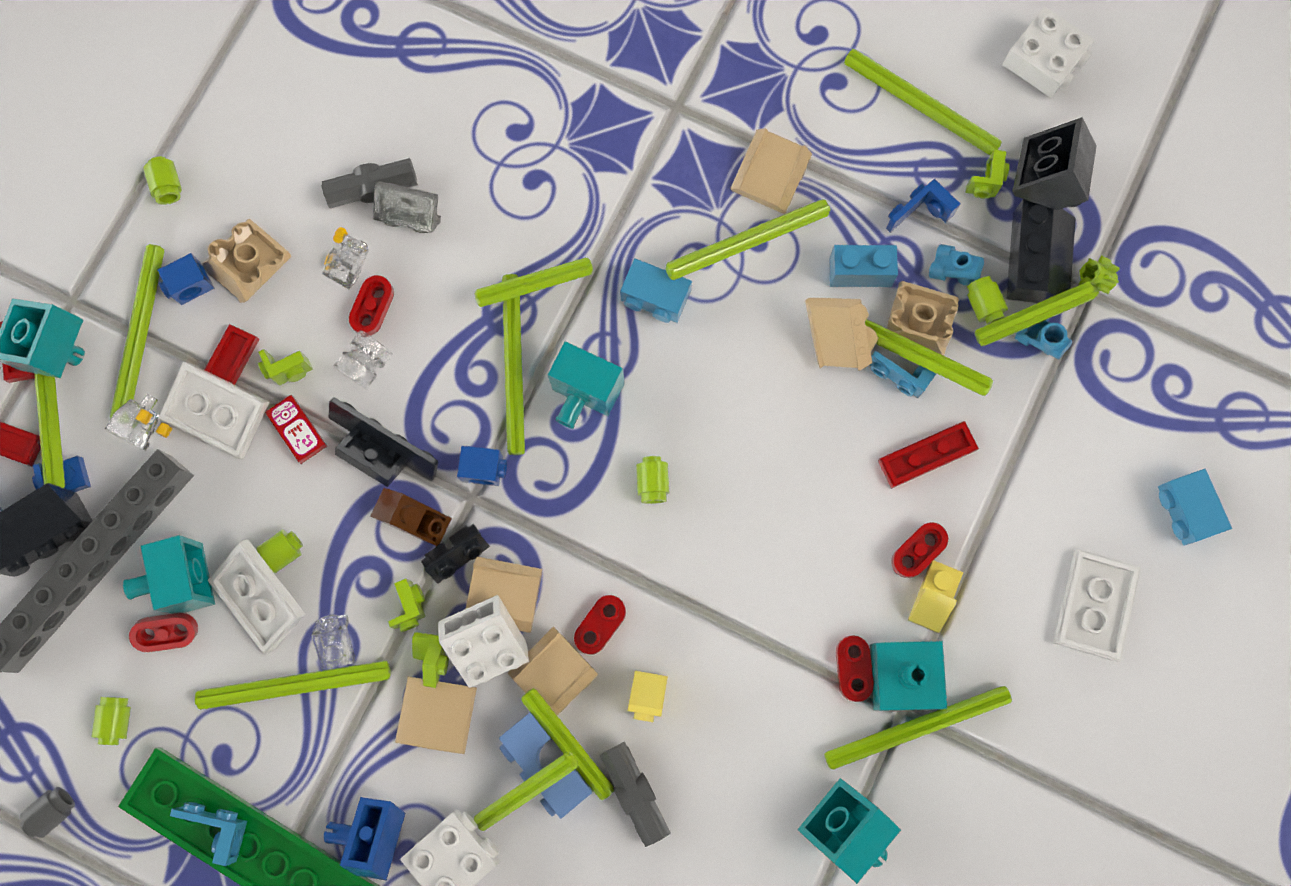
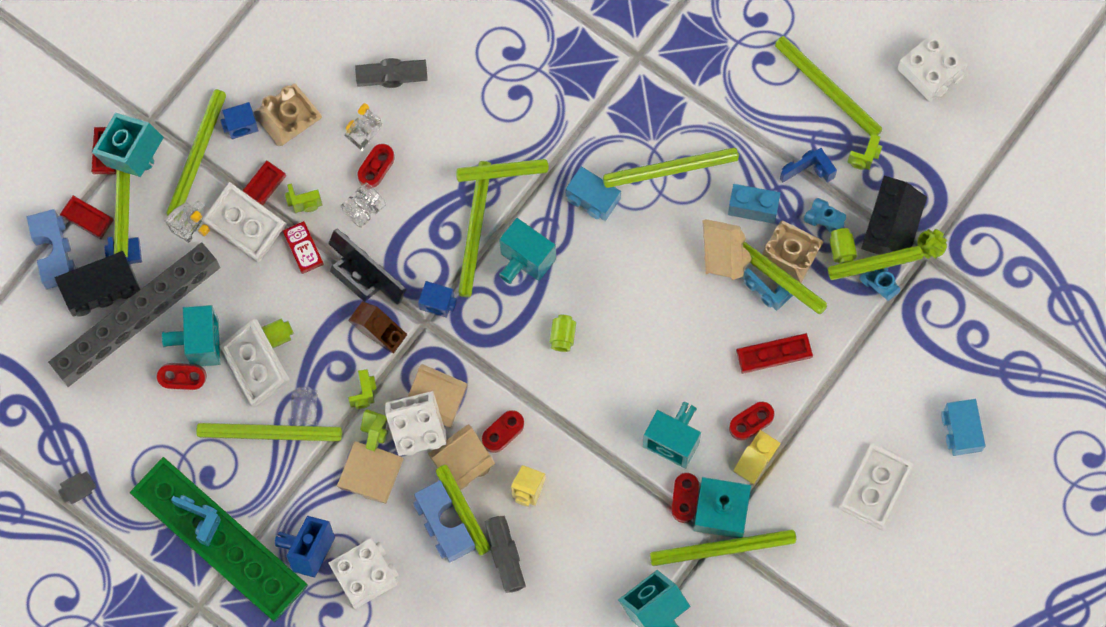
camera: 10 degrees right, 5 degrees down
(111, 720) = (133, 431): lime brick -> none
(162, 180) = (235, 42): lime brick -> none
(405, 207) = (416, 97): clear smoke bracket -> none
(443, 562) = (396, 364): black hinge -> none
(526, 791) = (426, 533): lime axle -> none
(771, 170) = (700, 119): tan slope -> none
(825, 593) = (672, 436): none -> teal brick
(1056, 166) = (916, 155): black slope -> none

